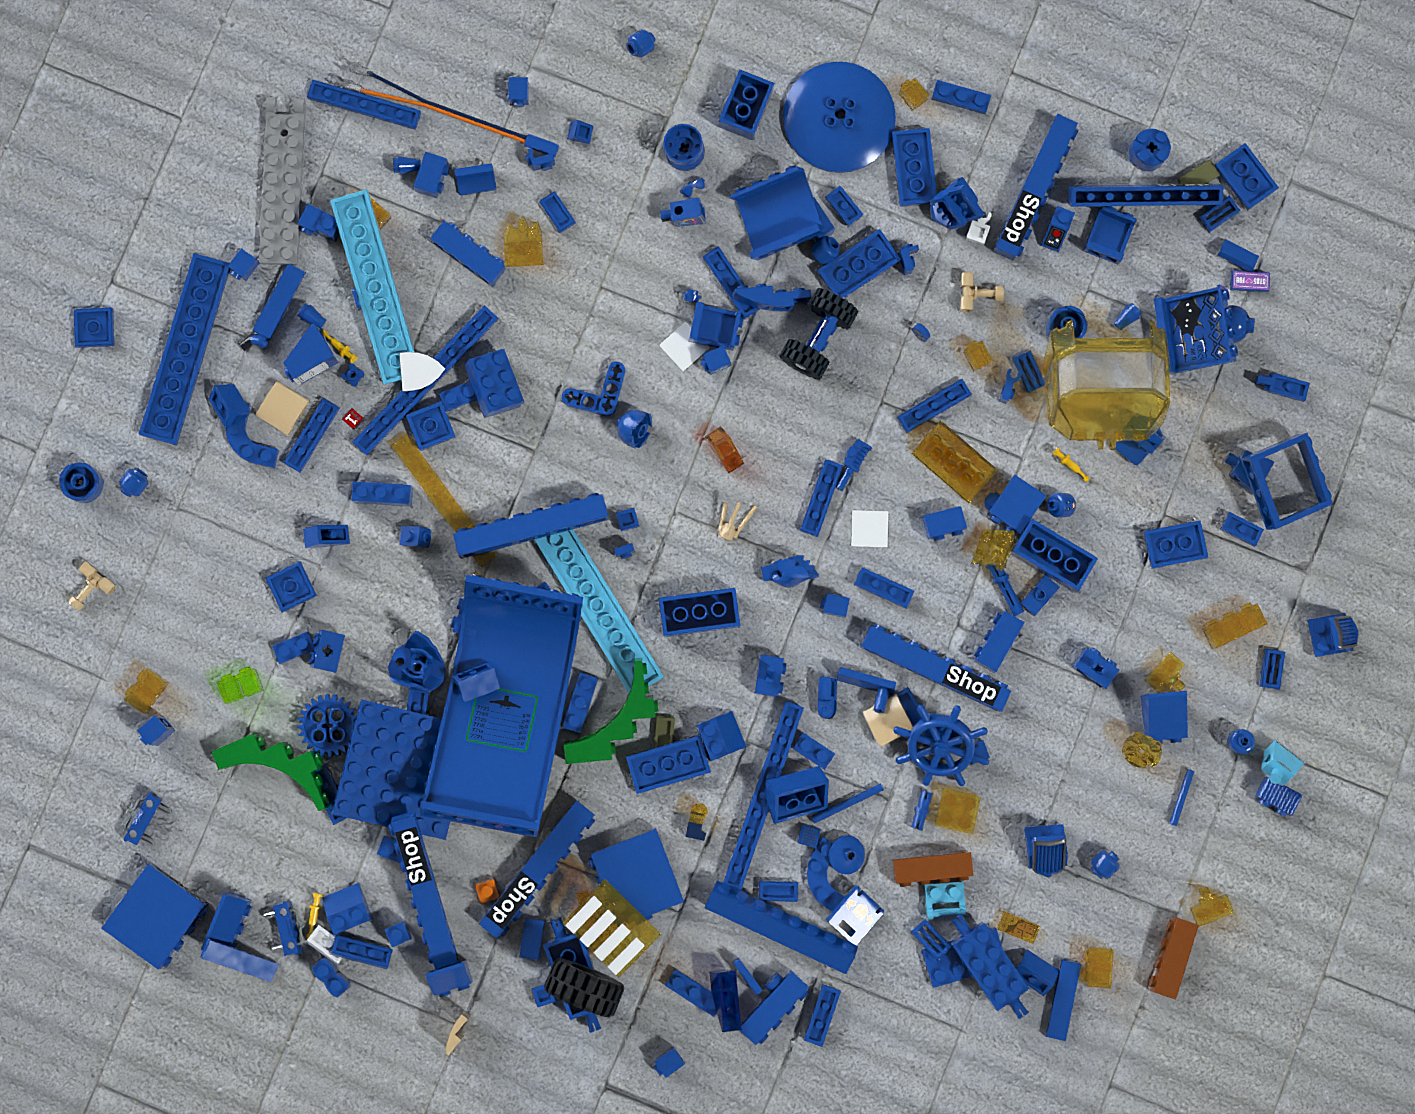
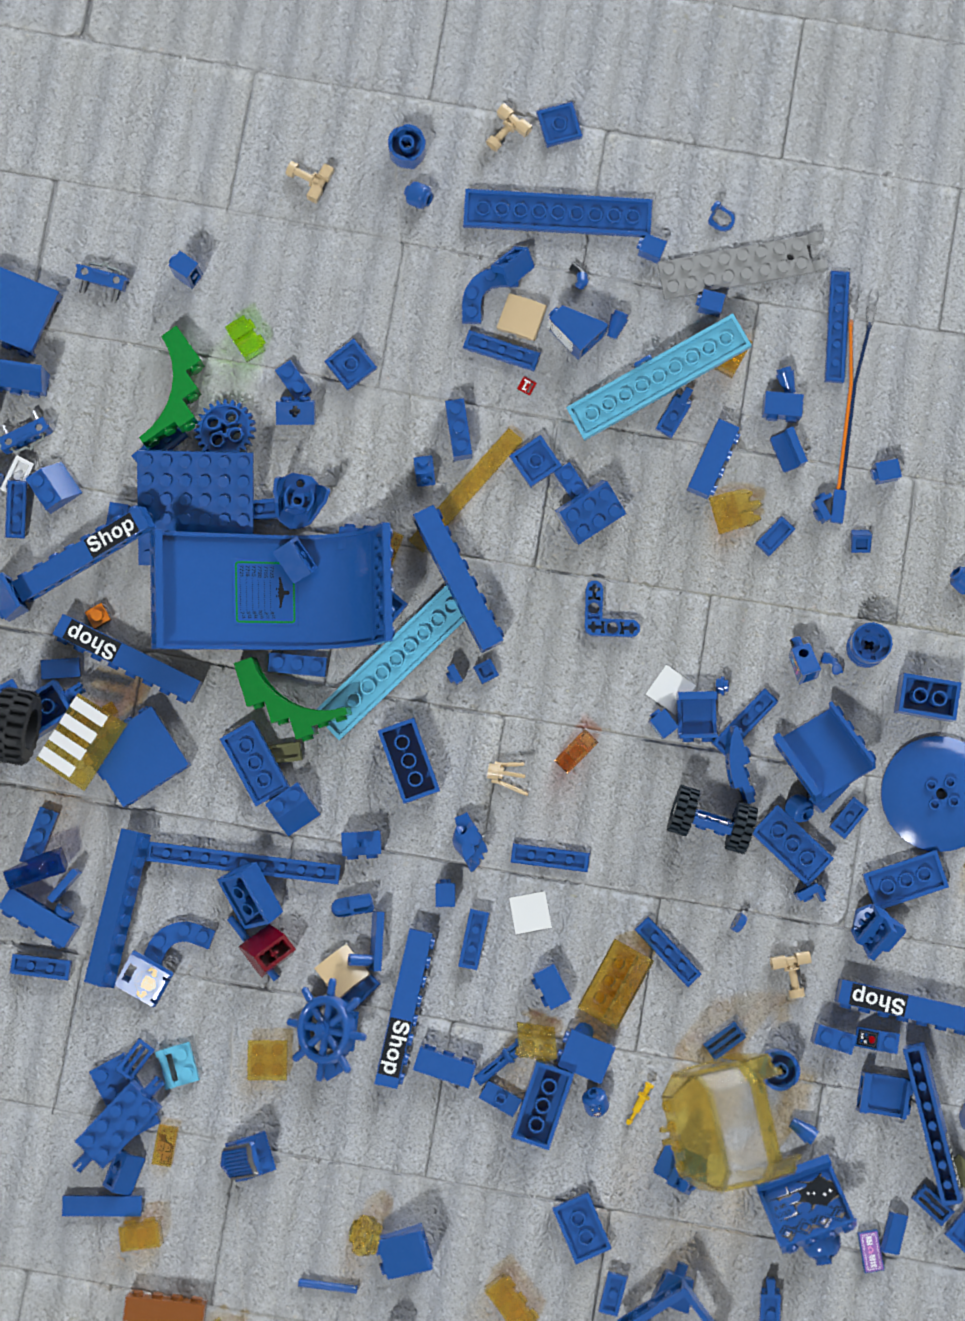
camera: 85 degrees right, 0 degrees up
(83, 374) = (511, 124): none -> tan bar
(146, 690) = (222, 252): clear yellow brick -> none
(232, 199) = (717, 206): none -> blue piece
(279, 301) = (624, 290): blue tile -> none
(315, 907) = (50, 457): yellow piece -> none
(326, 535) = (406, 386): blue slope -> none
(328, 227) = (707, 318): blue brick -> none
(344, 351) = (590, 363): yellow piece -> none
(353, 380) = (567, 371): blue plate -> none
(398, 933) = (39, 540): blue brick -> none
(407, 400) = (579, 447): blue plate -> none
(414, 280) = (675, 413): none -> blue hinge
(418, 370) = (586, 437): white sticker -> none
(633, 428) = (577, 657): blue cylinder -> none
(697, 815) = (211, 802): leg -> none
(778, 891) = (153, 898): blue tile -> none
(809, 836) = (212, 916): blue slope -> none
(813, 751) = (297, 903): blue plate -> none
(839, 854) = (203, 950): blue dish -> none
(852, 788) = (267, 949): none -> dark red slope
(853, 460) = (596, 882): blue piece -> none
(921, 810) = (261, 1023): blue pin -> none
(933, 868) = (206, 1047): dark orange brick -> none
(977, 355) = (728, 984): clear yellow brick -> none
(978, 230) = (856, 959): white plate -> none
(1008, 390) = (699, 1023): blue plate -> none
(1048, 269) = (833, 1038): none -> blue brick
(1095, 667) = (439, 1170): blue brick -> none
(1105, 864) = (244, 1220): blue head -> none
(1166, 674) = (448, 1245): clear yellow hinge -> none

